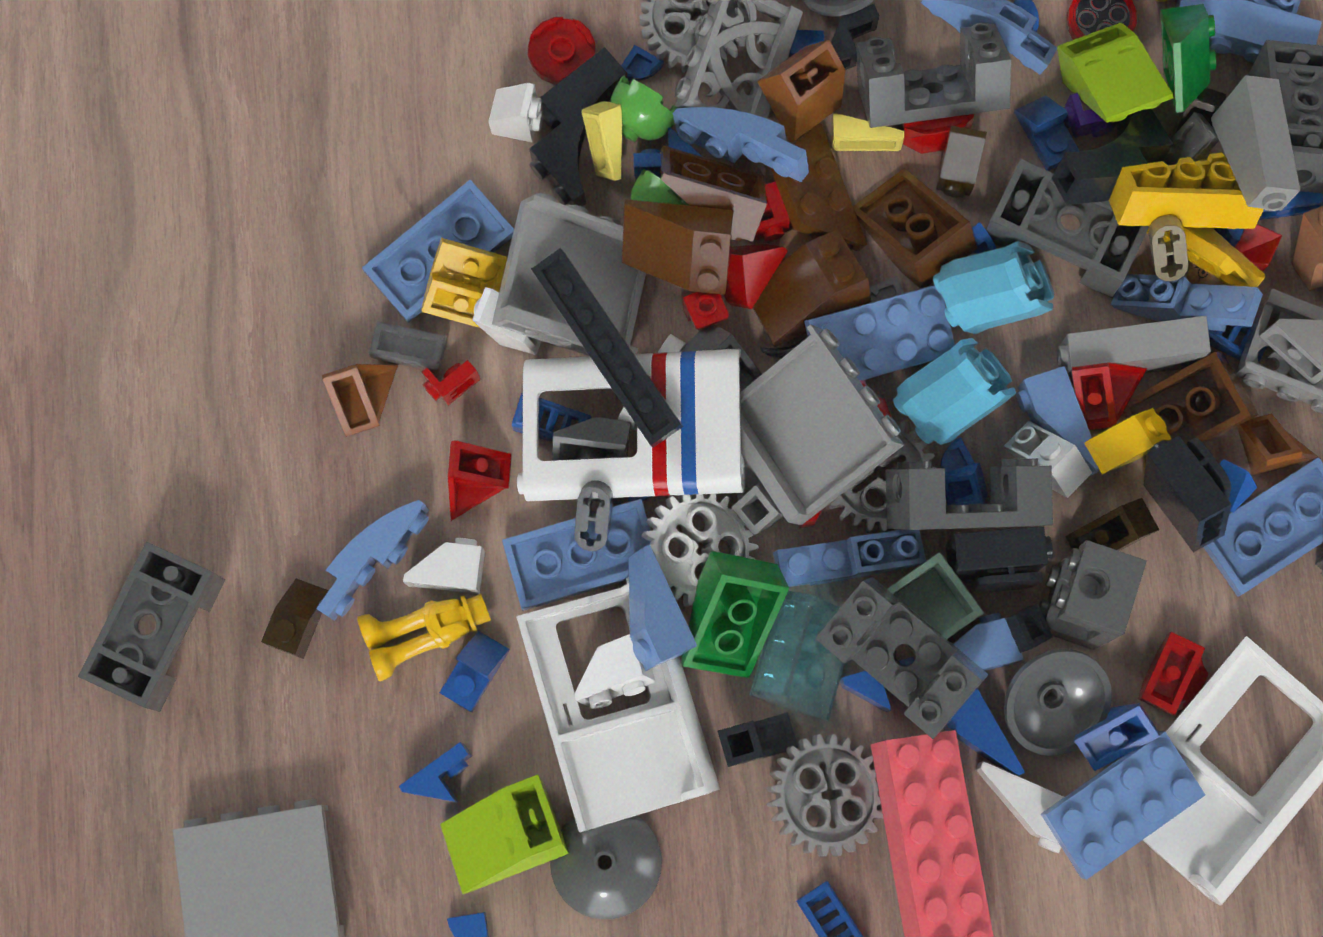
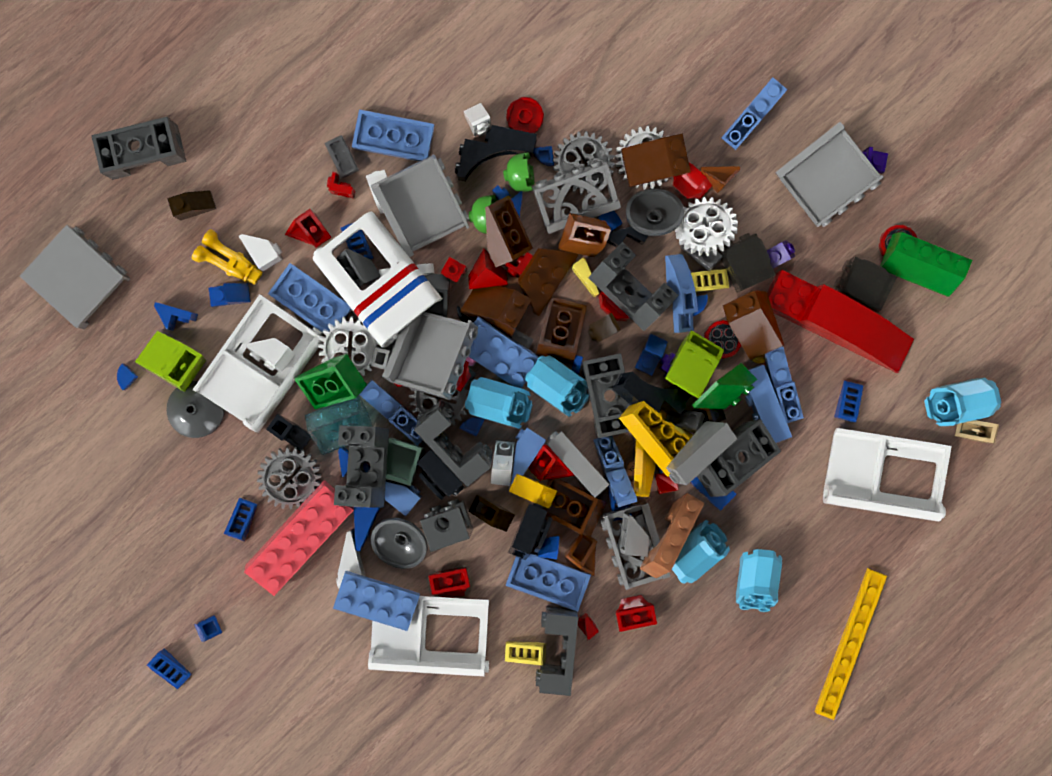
camera: 45 degrees right, 10 degrees up
(359, 394) = (304, 154): dark orange slope -> none
(379, 542) = (248, 213): medium blue slope -> none
(460, 279) = (385, 155): yellow slope -> none
(585, 515) = (327, 296): beam -> none
(604, 136) = (499, 162): light yellow slope -> none
(607, 348) = (396, 242): black plate -> none
(655, 618) = (301, 352): medium blue slope -> none
(679, 243) = (469, 238): reddish brown slope -> none
(734, 133) = (539, 224): medium blue slope -> none
(965, 485) = (464, 437): blue slope -> none
(1028, 628) = (418, 508): black plate -> none
(1119, 734) = (403, 577): blue slope -> none
(1175, 247) = (629, 448): dark tan beam -> none

